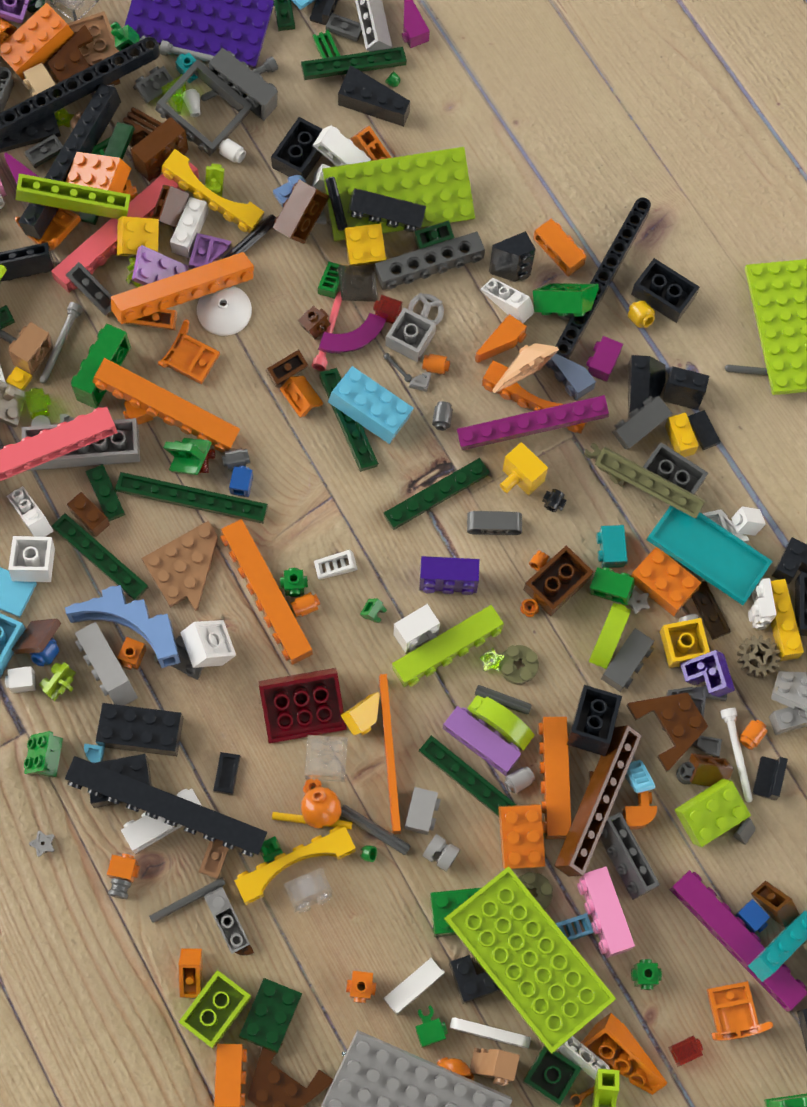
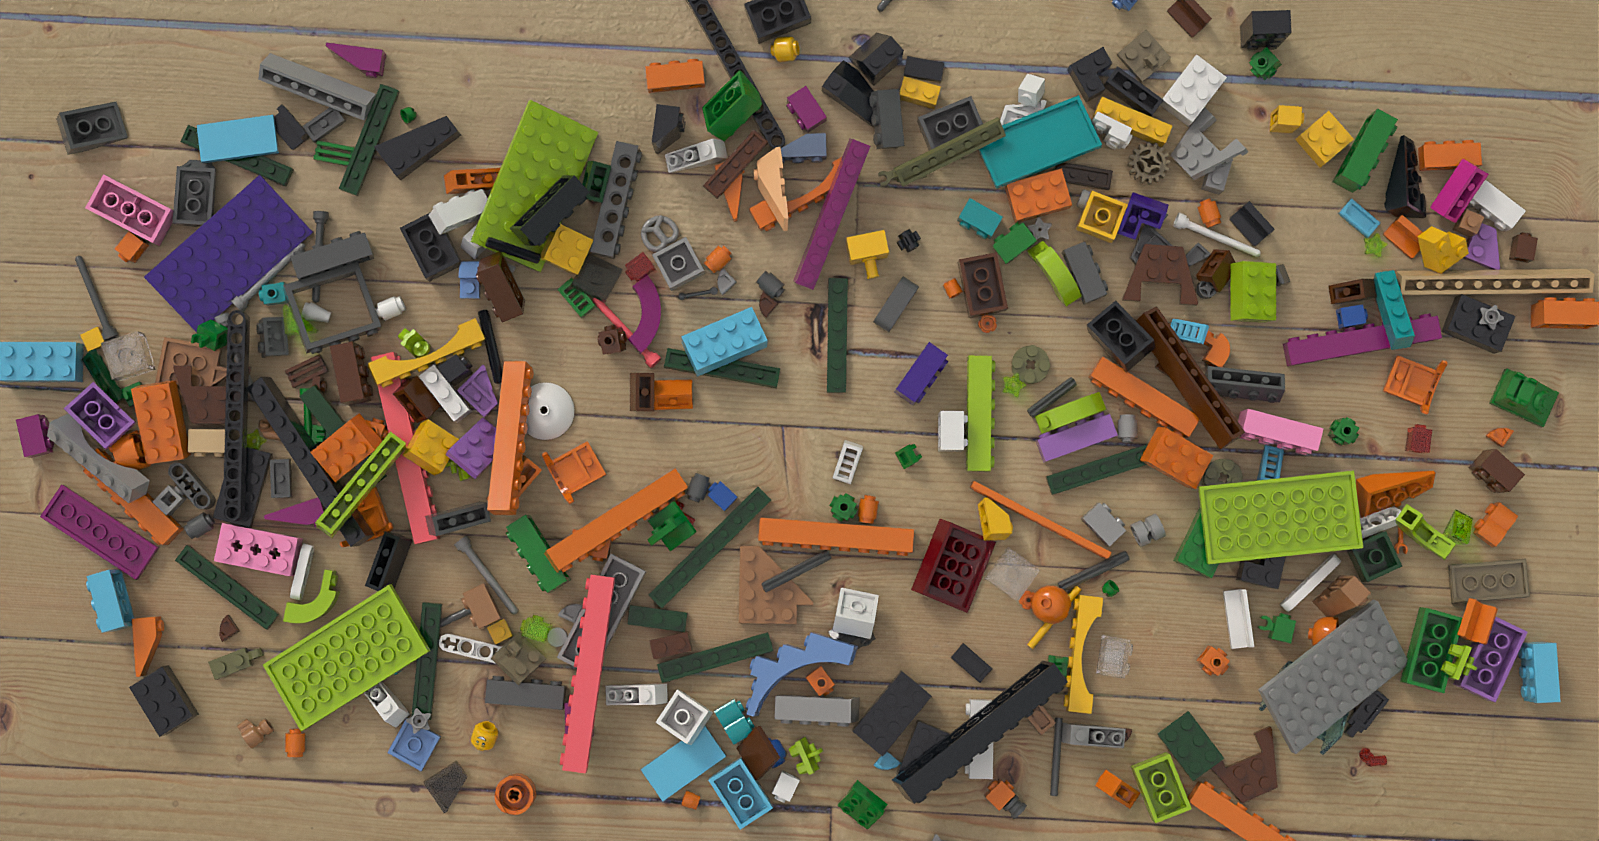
camera: 55 degrees left, 15 degrees up
(53, 602) = (734, 721): none -> teal brick
(212, 220) = (456, 369): none -> black brick
(215, 576) = (796, 571): none -> dark grey axle
(424, 424) = (766, 304): none -> reddish brown tile
(521, 327) = (735, 164): none -> reddish brown tile

